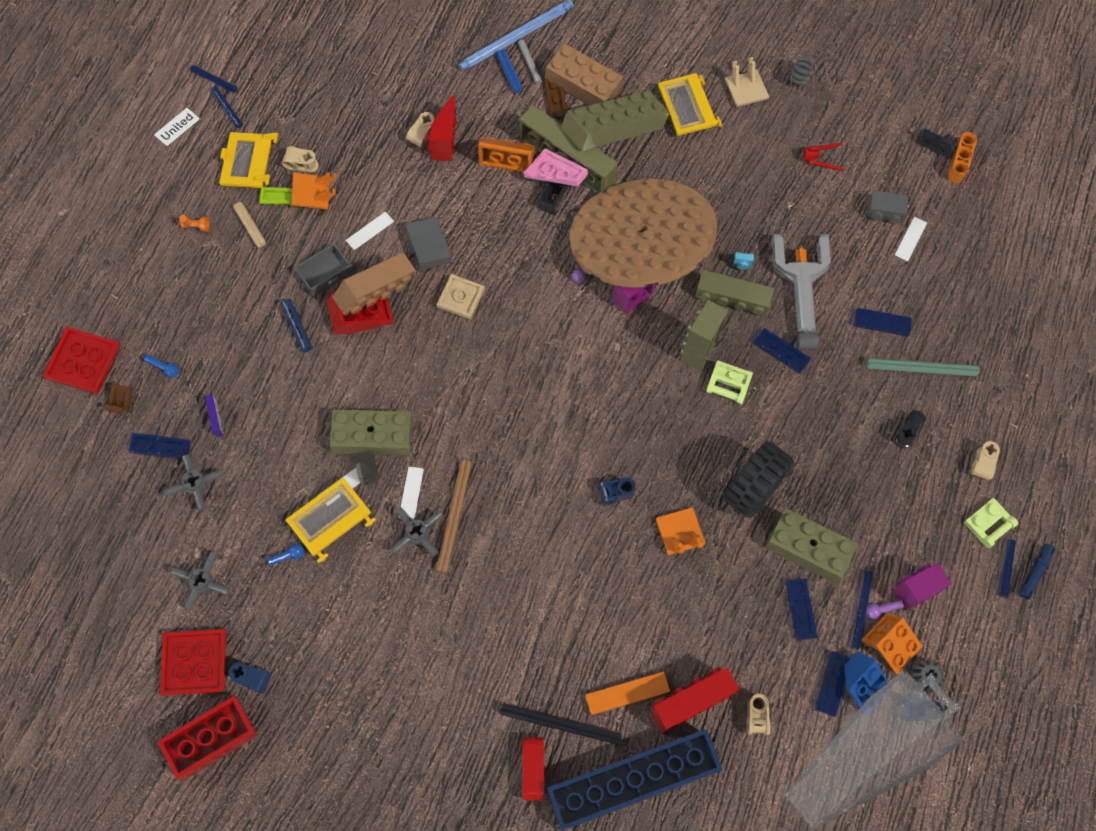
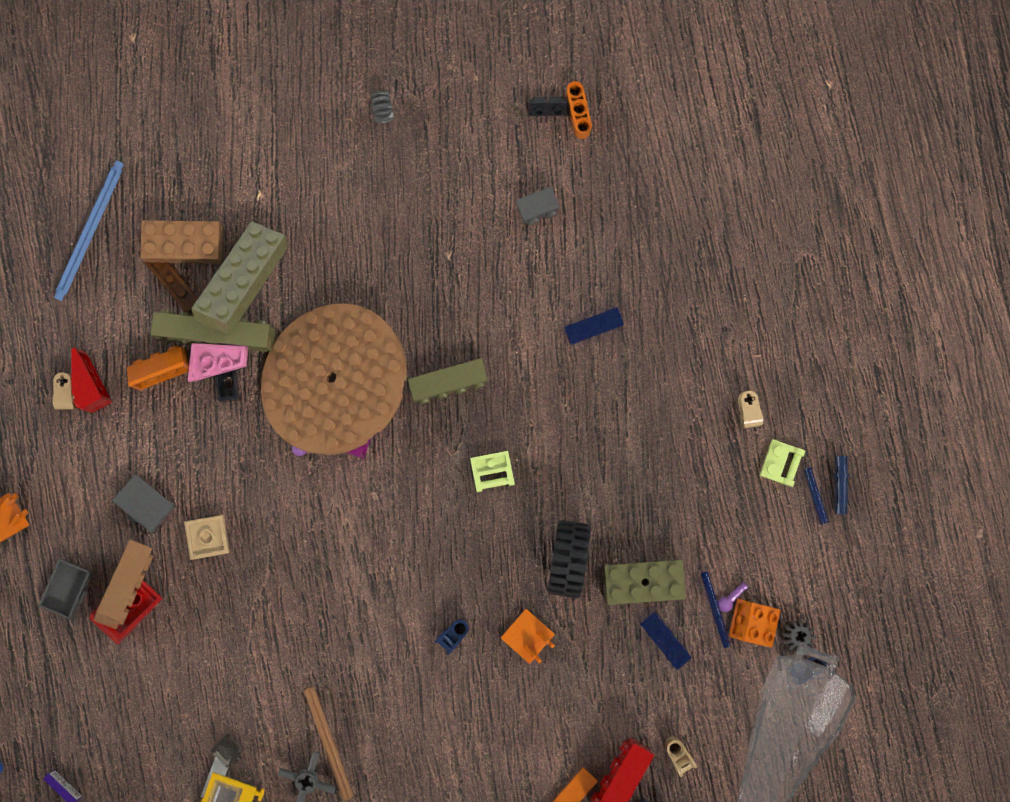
camera: 30 degrees left, 15 degrees up
(288, 308) = (71, 653): dark blue pin -> none
(353, 432) = (226, 706): olive brick -> none
(369, 230) = (82, 521): white sticker -> none
(412, 490) = (279, 744): white sticker -> none
(509, 71) = (106, 274): blue axle -> none
(530, 62) = (120, 252): light grey bar -> none
(687, 104) = (295, 209): piece -> none
(703, 334) = (446, 452): olive brick -> none
(743, 261) = (438, 344): medium azure plate -> none
(746, 87) = (339, 153): tan plate -> none
(782, 350) = (521, 410): clear blue tile -> none
(803, 276) = (500, 326): light grey piece -> none
(812, 153) = (439, 188): red plant -> none
(832, 685) = (725, 688): clear blue tile -> none
(863, 677) = (748, 673): blue slope -> none
(910, 429) = (671, 418): black connector -> none
(911, 238) = (575, 223): white sticker -> none
(921, 585) = (754, 563): magenta brick -> none
(923, 367) = (651, 349): sand green axle -> none

